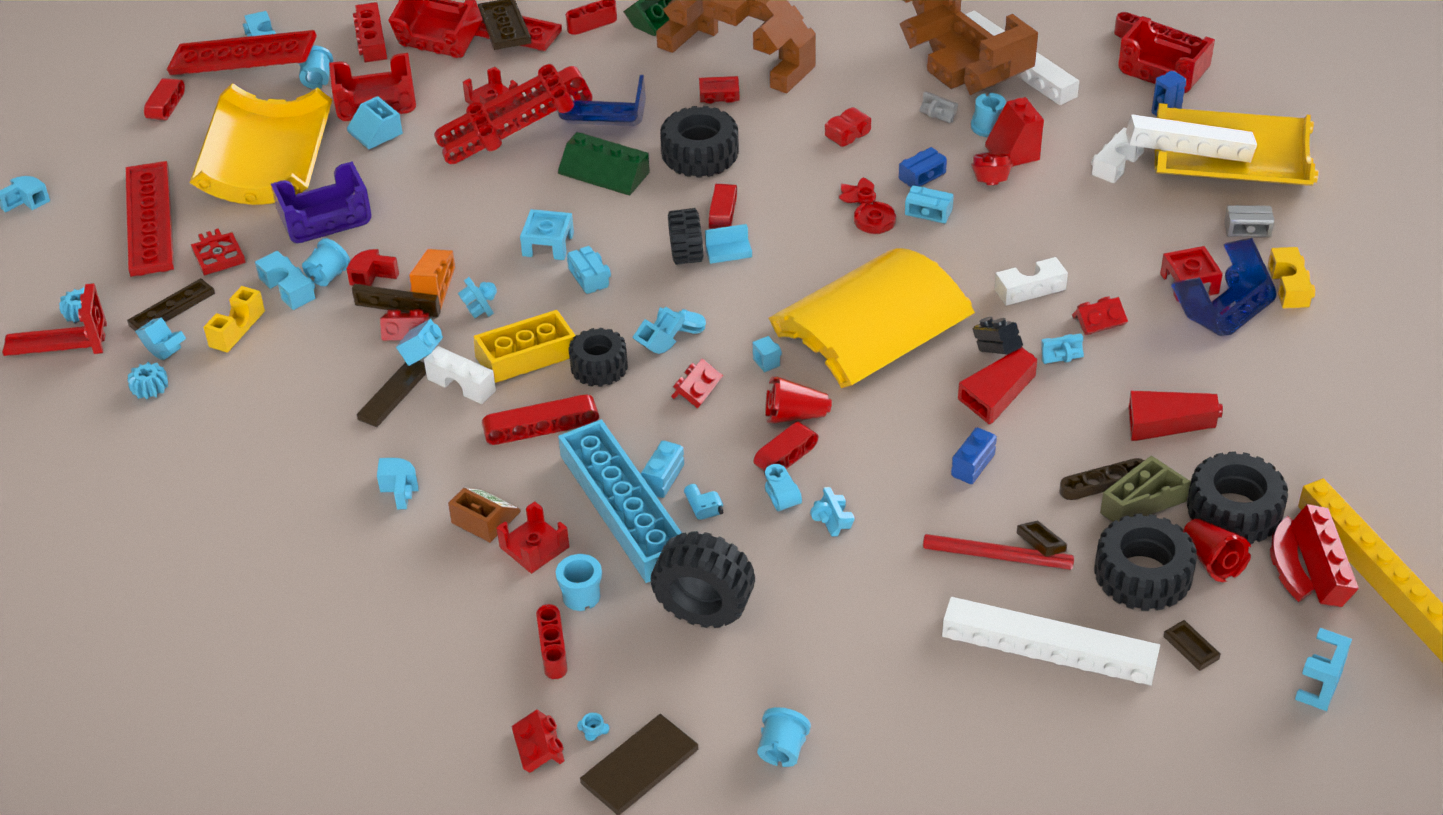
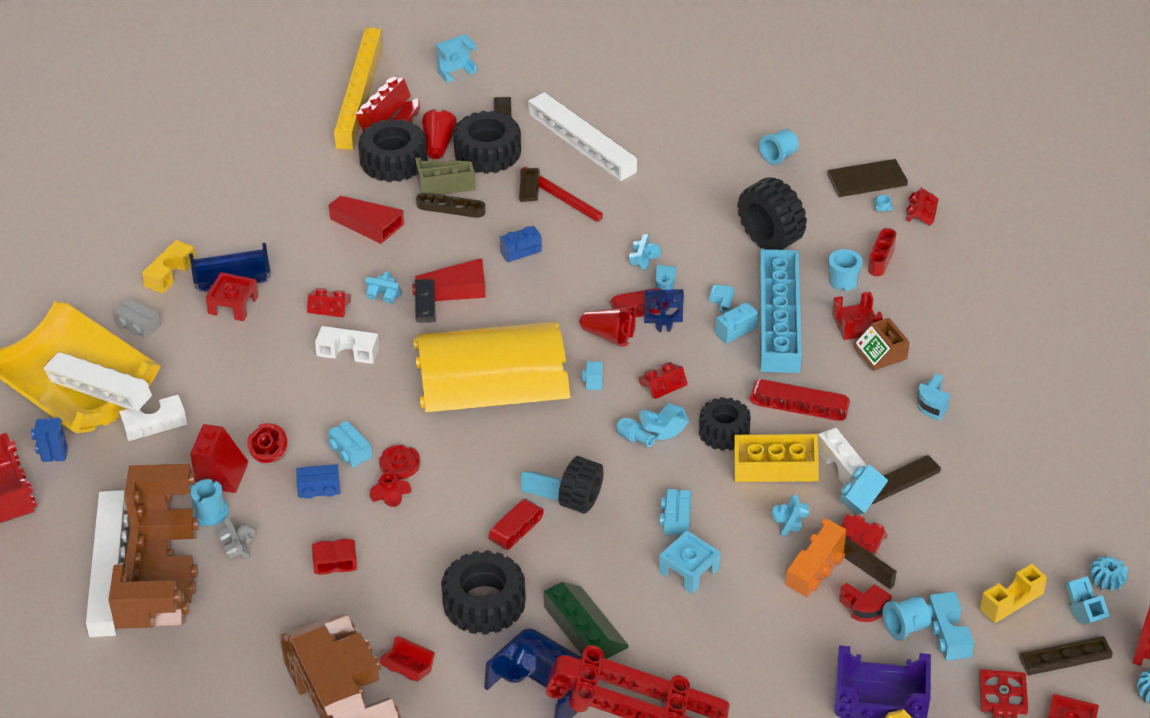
camera: 150 degrees left, 0 degrees up
(745, 452) = (660, 297): none -> clear blue piece

